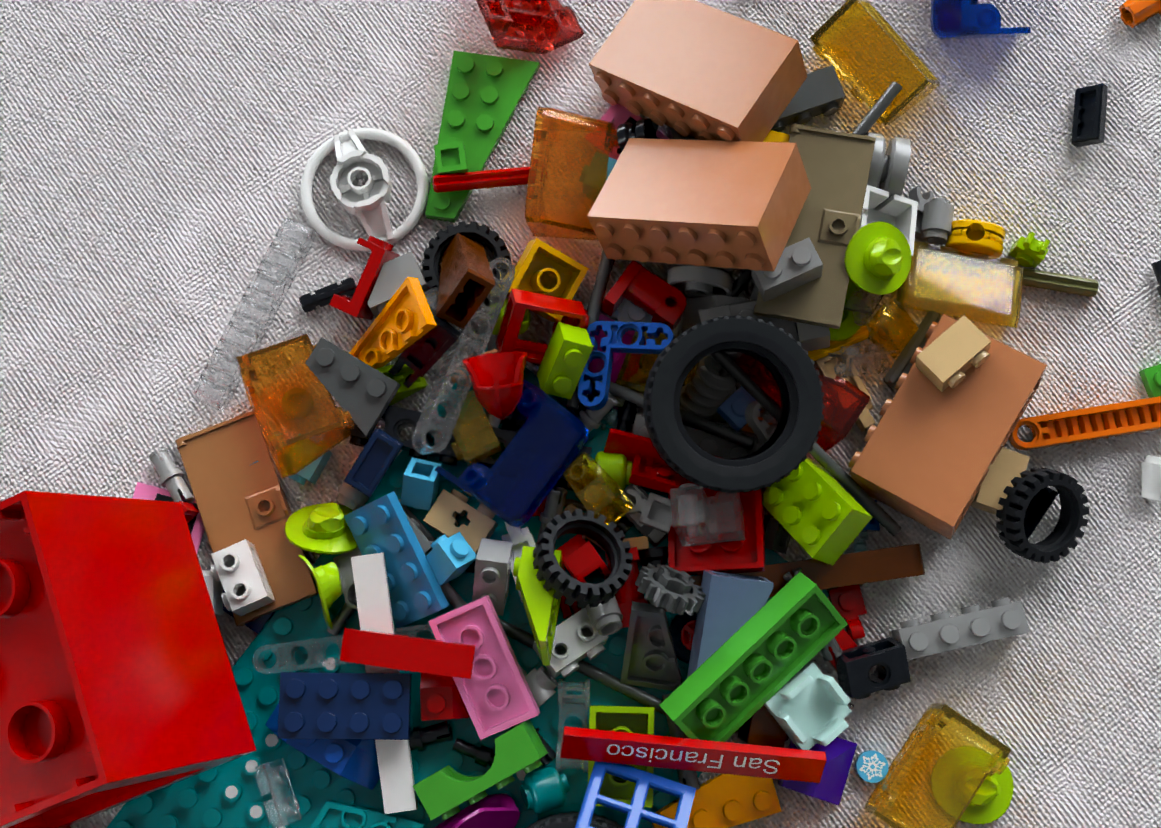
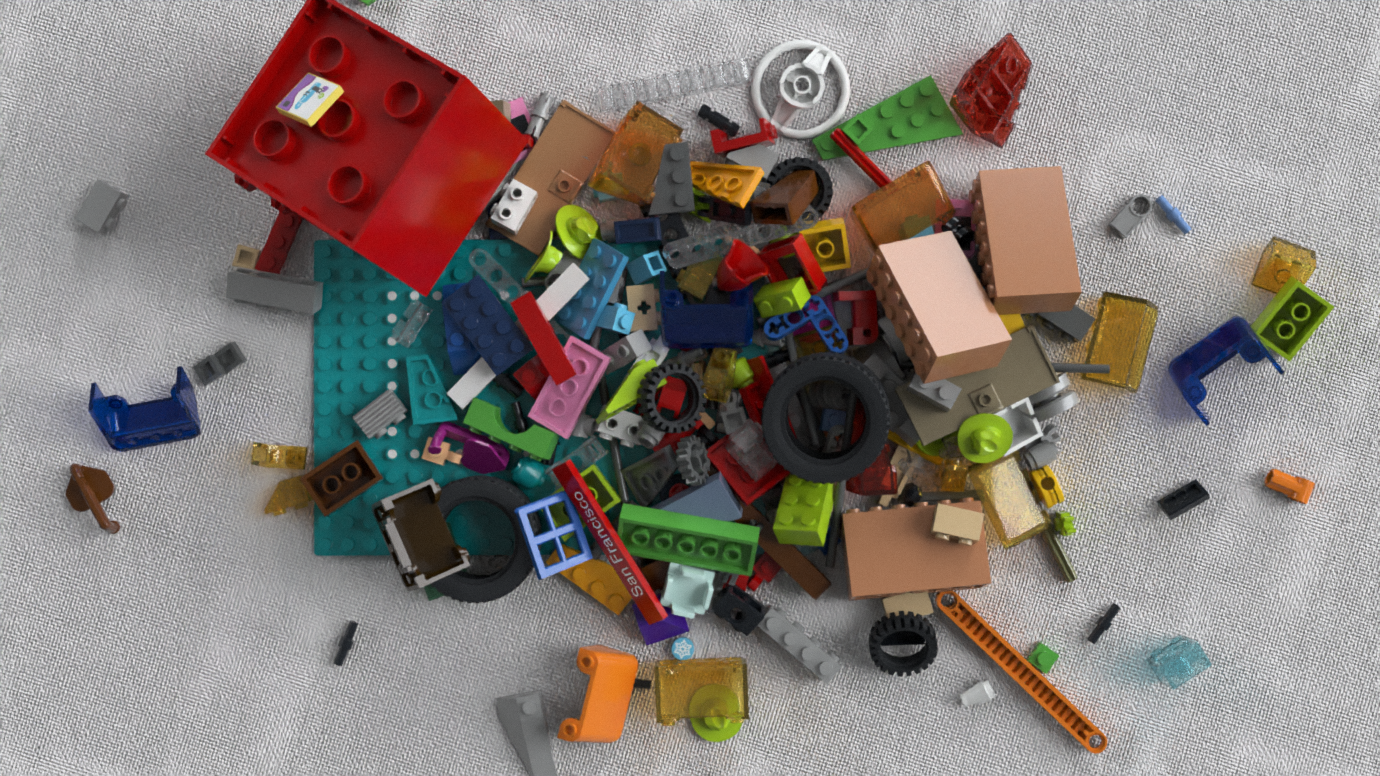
camera: 45 degrees right, 10 degrees up
(880, 387) = (911, 494): none -> black tile

